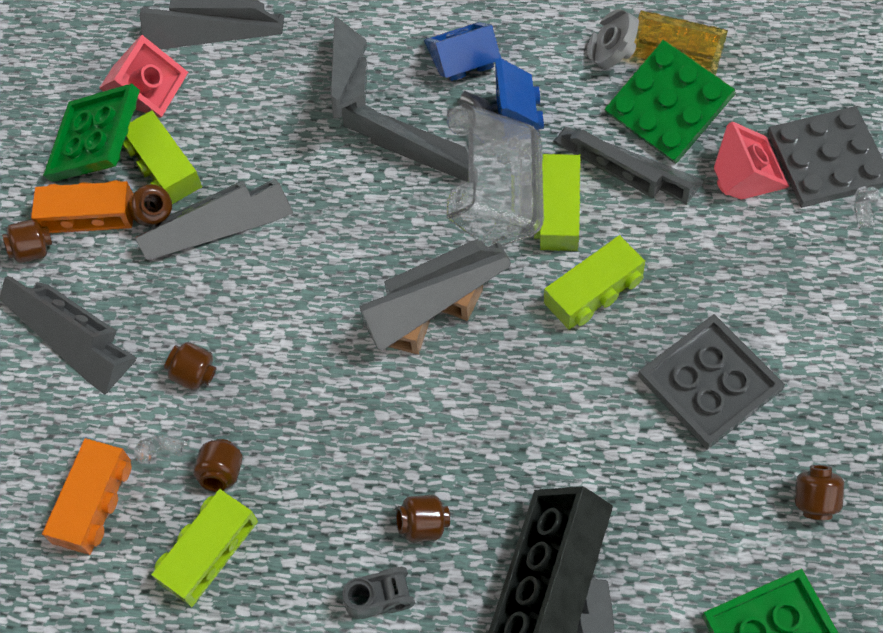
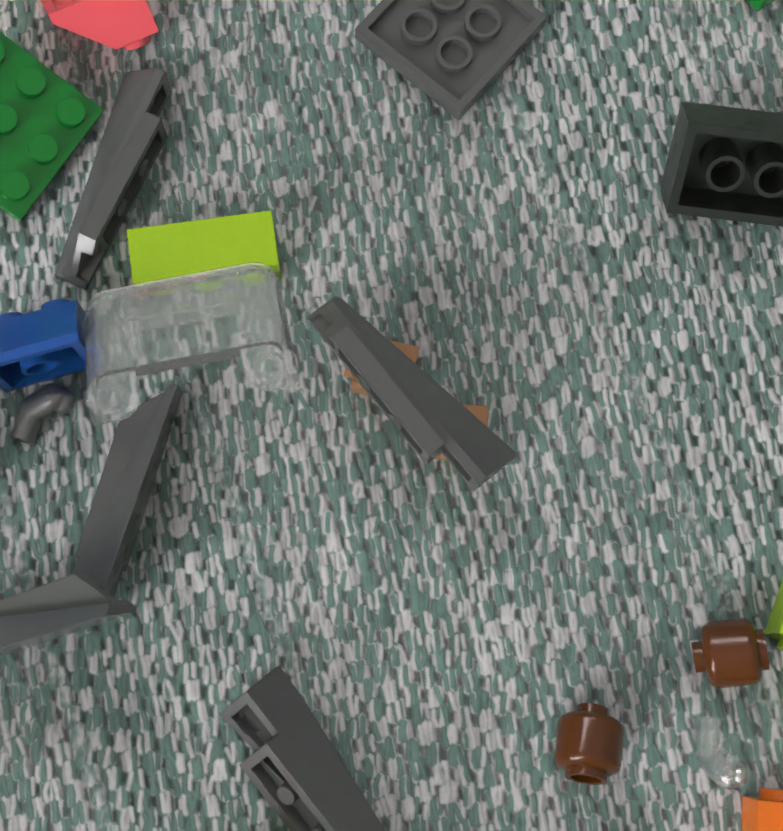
camera: 115 degrees left, 15 degrees up
(422, 518) = (734, 351): reddish brown head -> none
(594, 283) = (333, 186): lime brick -> none

